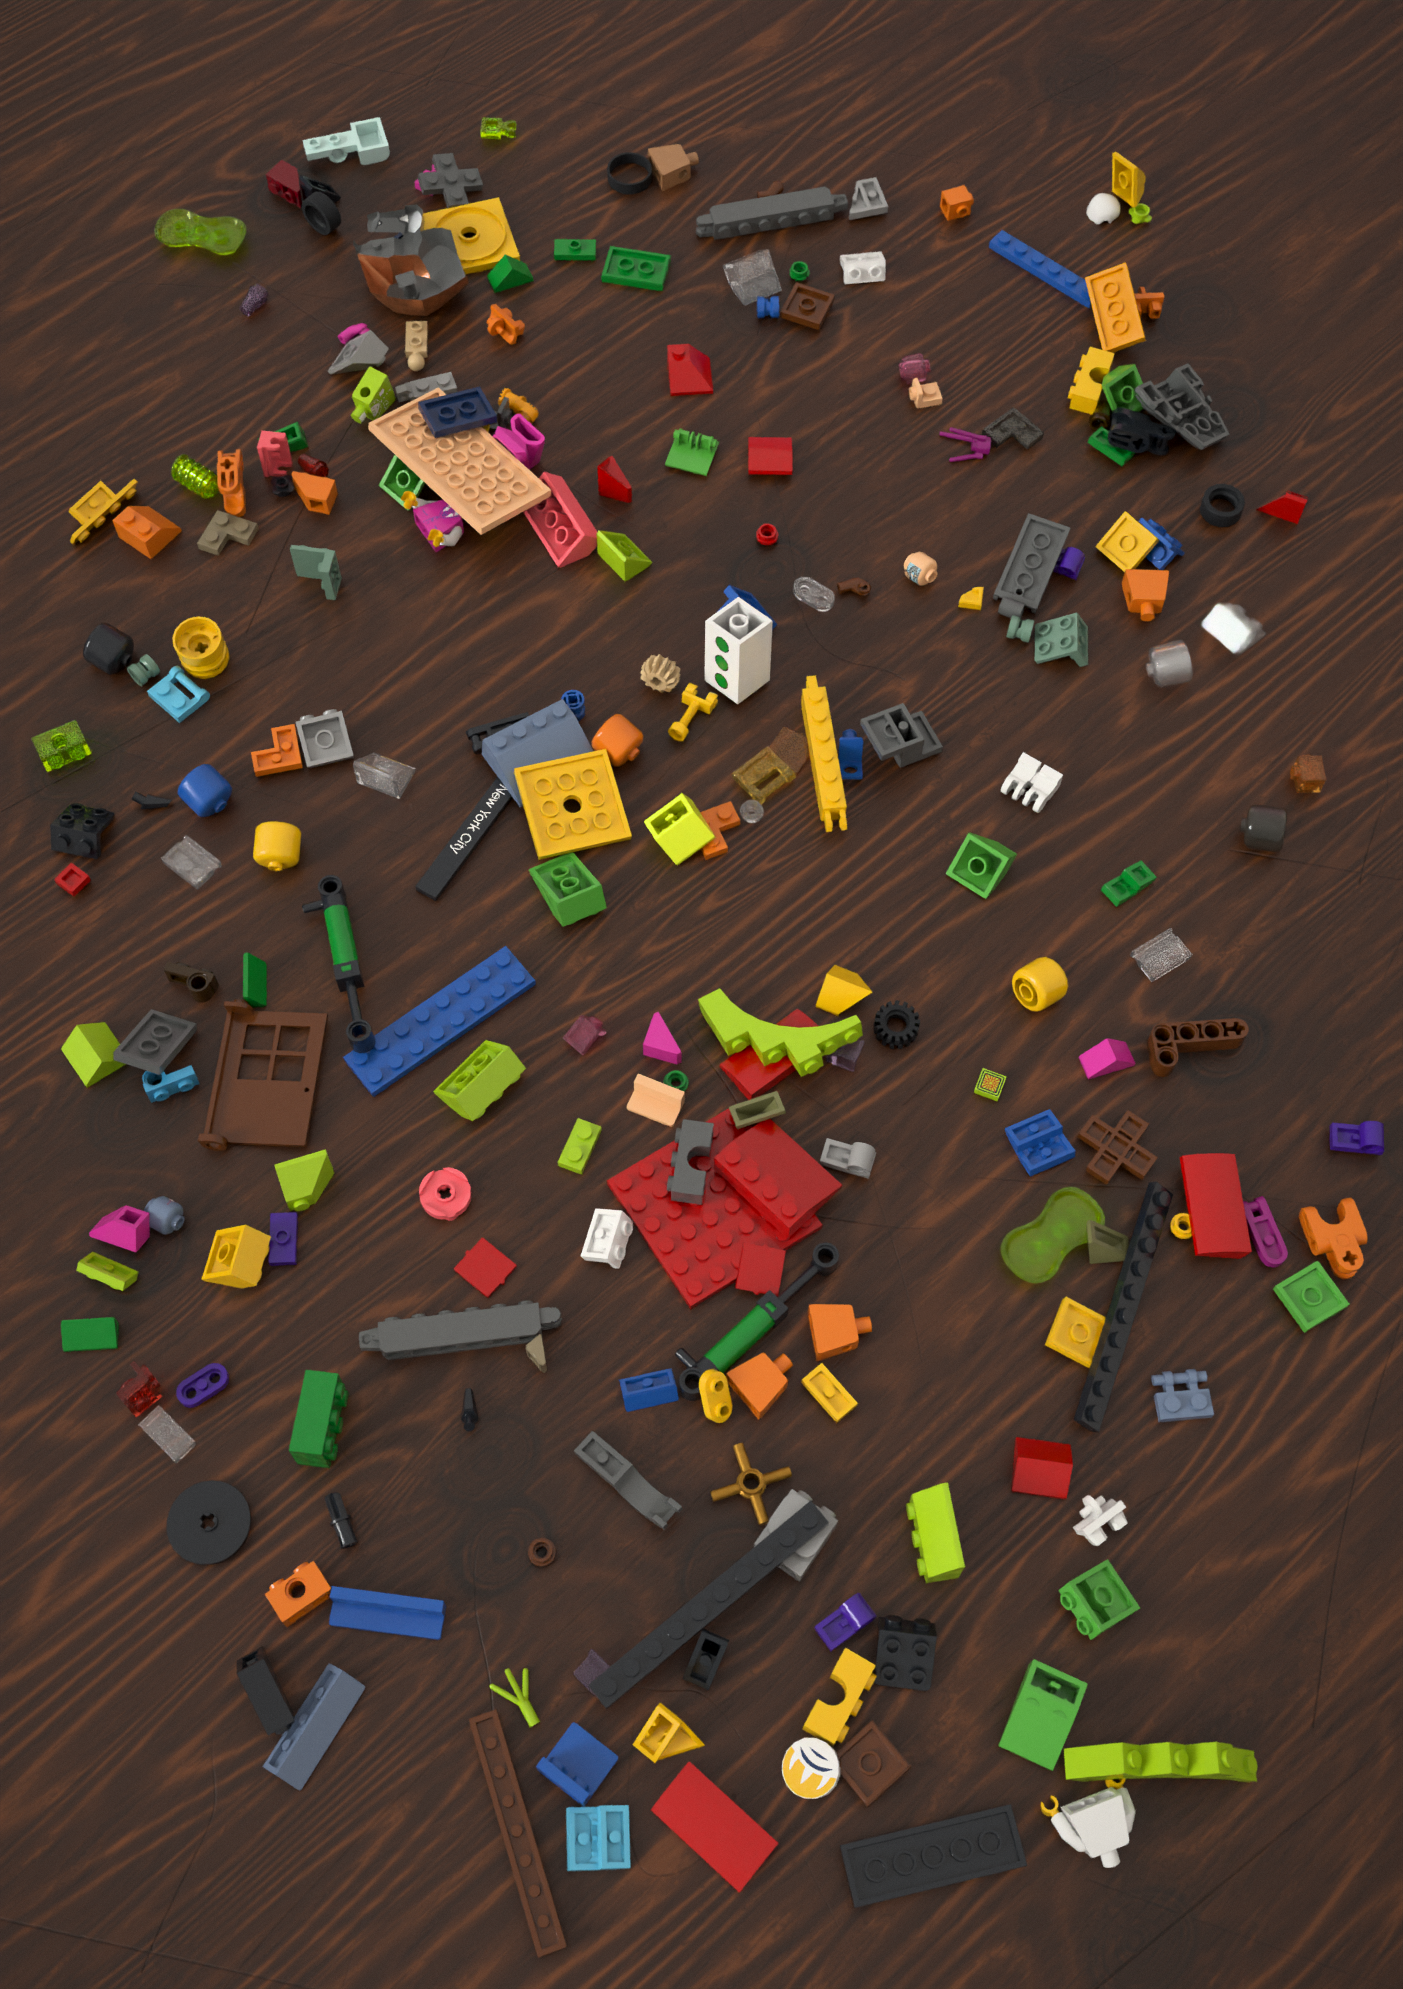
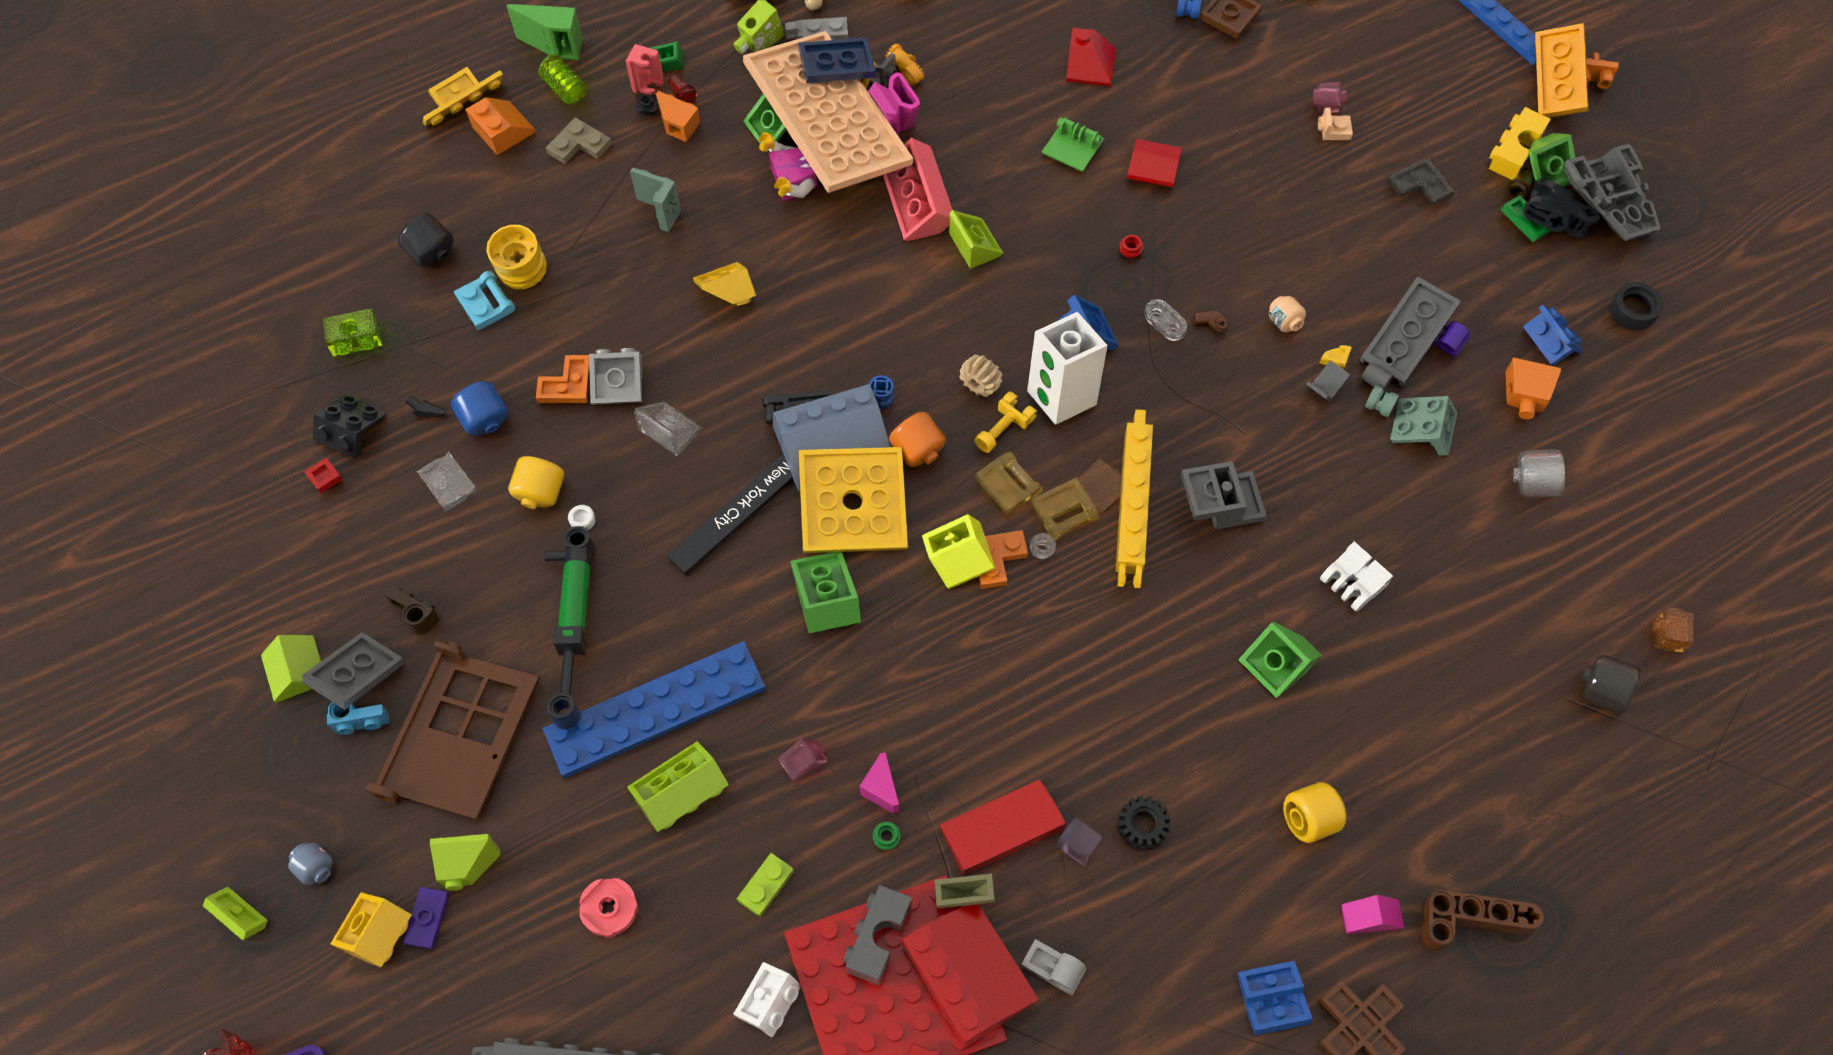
camera: 15 degrees right, 0 degrees up
(89, 1334) = (198, 980): green slope -> none
(124, 1228) = (264, 870): dark pink slope -> none
(143, 670) = (450, 271): sand green wheel -> none
(168, 431) = (548, 29): none -> bright green slope
(230, 482) = (594, 90): orange piece -> none
(254, 981) = (474, 624): green slope -> none
(326, 867) = (581, 516): none -> white tile
(406, 634) = (728, 283): none -> yellow slope
(485, 1267) = (629, 1001): red piece -> none
(613, 482) = (981, 160): red slope -> none
(656, 1100) = (859, 852): light nougat panel -> none
(705, 768) = (1003, 487): none -> clear yellow plate
(773, 1042) = (1000, 816): lime arch -> none
(841, 990) = (1092, 769): yellow slope -> none
(850, 754) = (1163, 505): blue bracket -> none
(970, 620) = (1329, 381): none -> dark grey bracket
(979, 443) = (1381, 190): magenta plant -> none
(990, 1084) = (1233, 916): tile -> none
(1127, 542) = (1521, 328): yellow plate -> none
(1129, 883) = (1441, 715): green slope -> none
(1161, 955) = (1460, 805): clear plate -> none
(1233, 627) = (1621, 445): clear slope -> none
(1286, 507) = (1710, 321): red slope -> none

